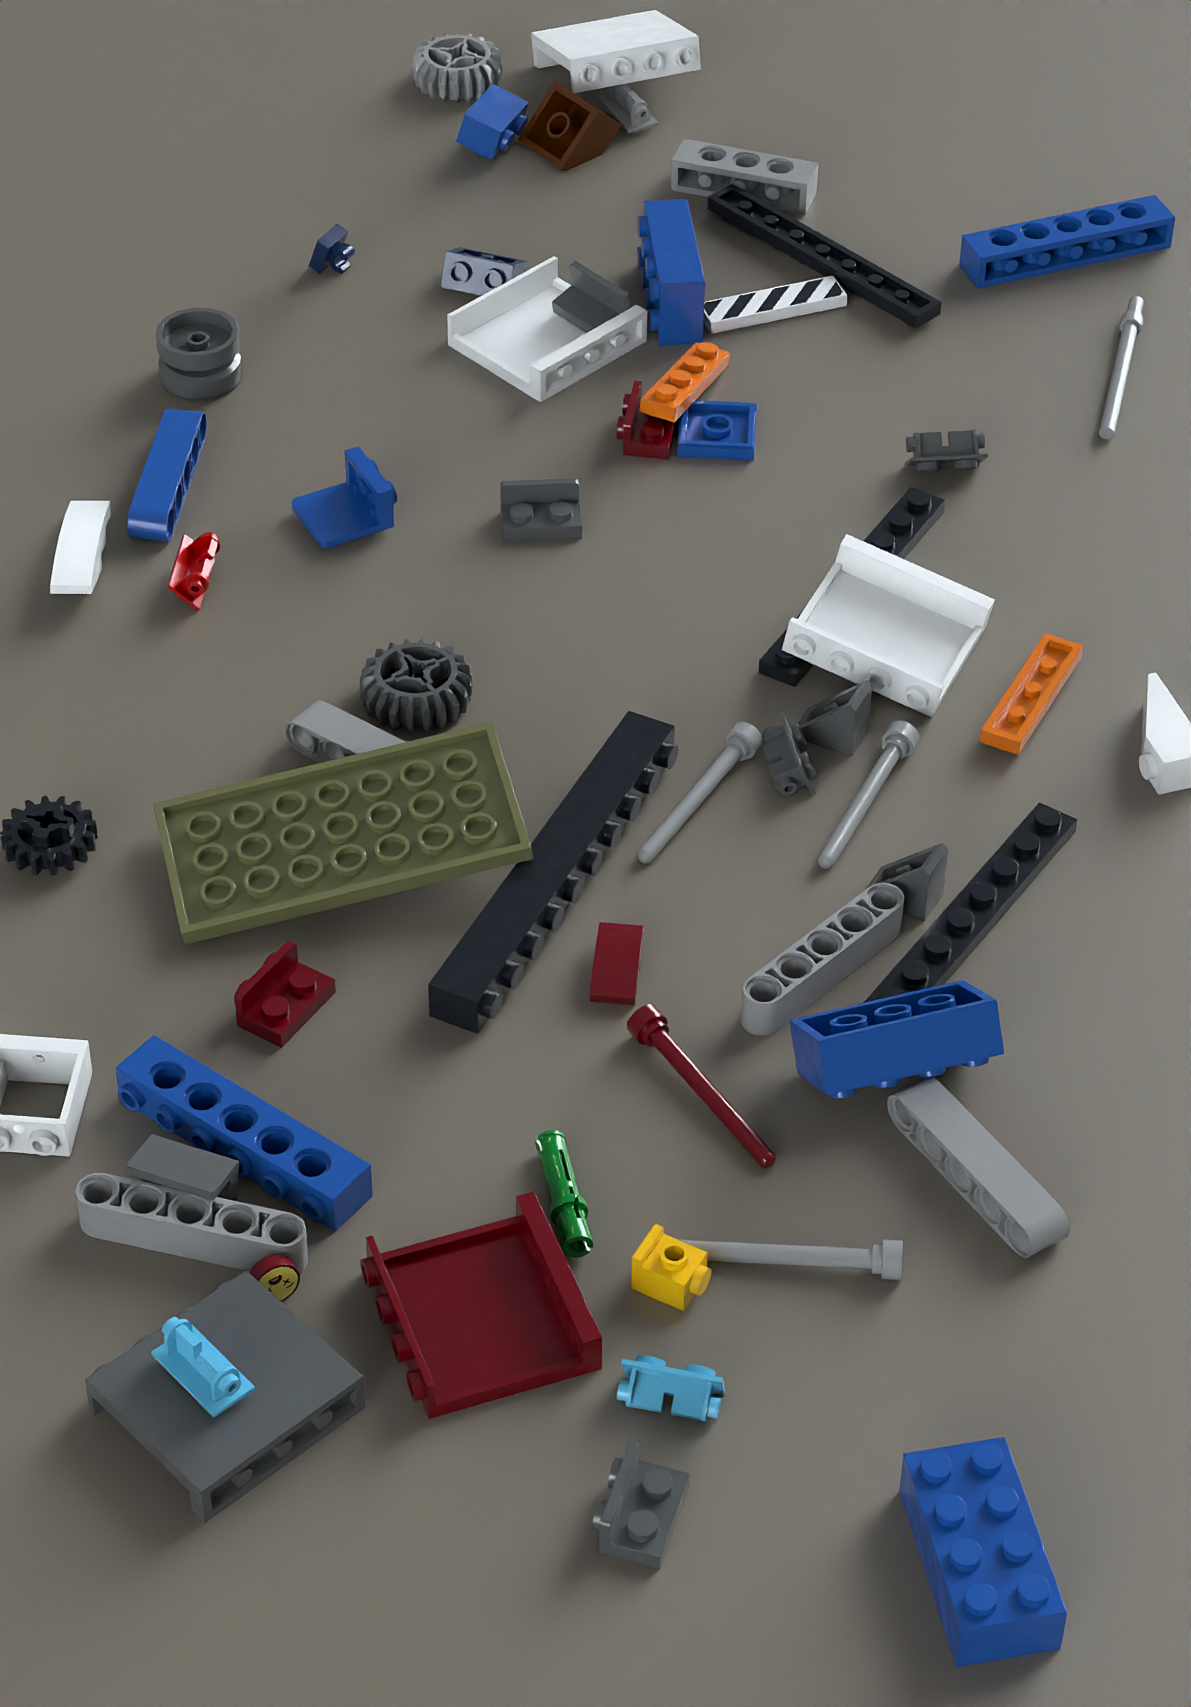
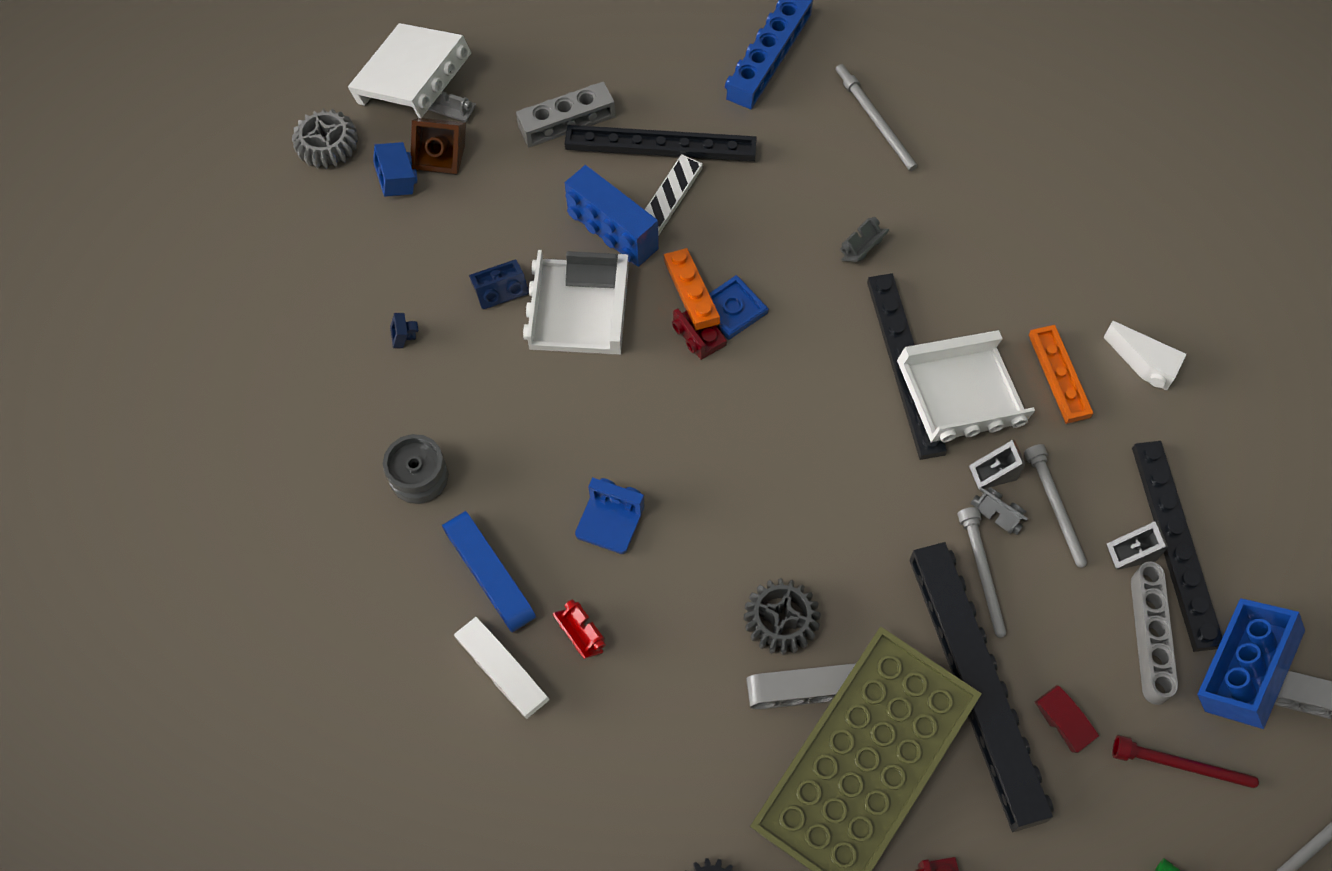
camera: 40 degrees left, 20 degrees up
(540, 510) = (710, 438): dark grey bracket -> none

